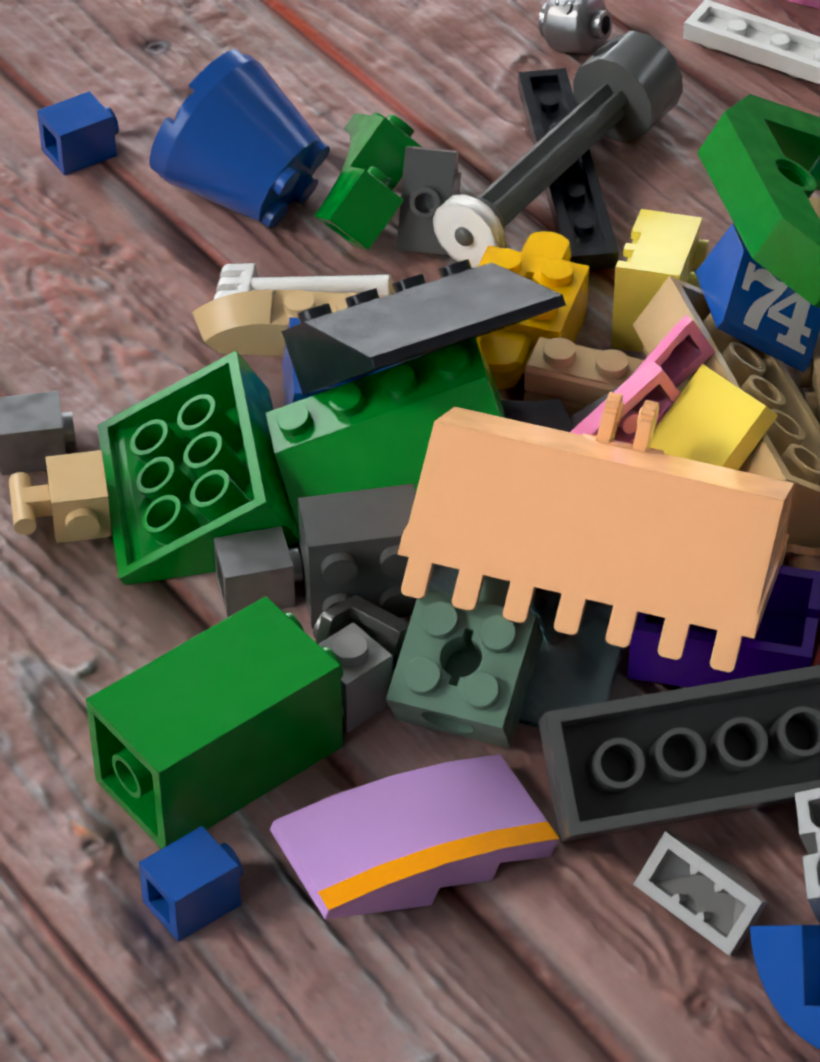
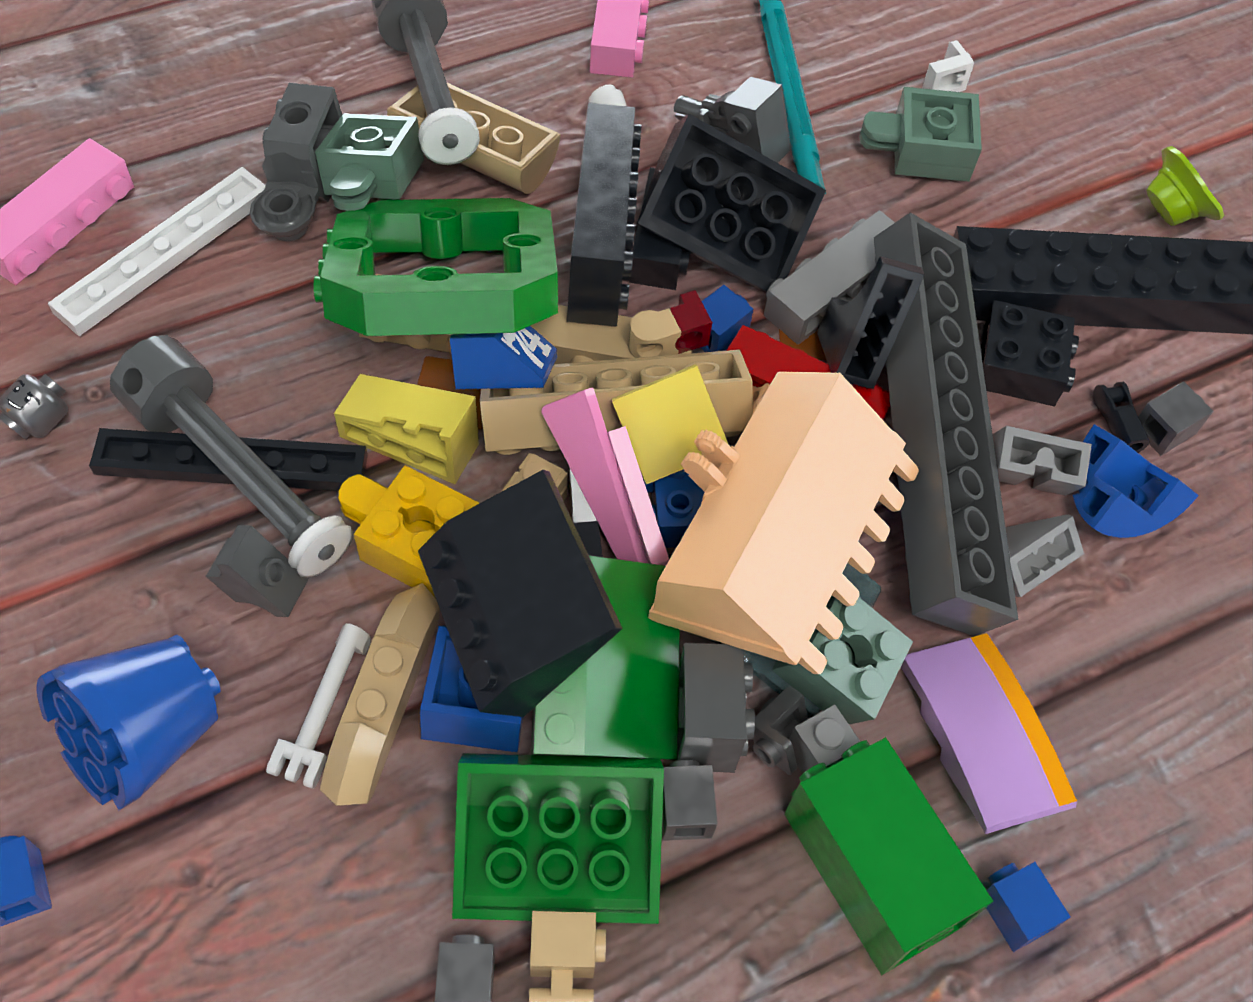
camera: 85 degrees left, 15 degrees up
(363, 192) = (239, 627): green arch -> none

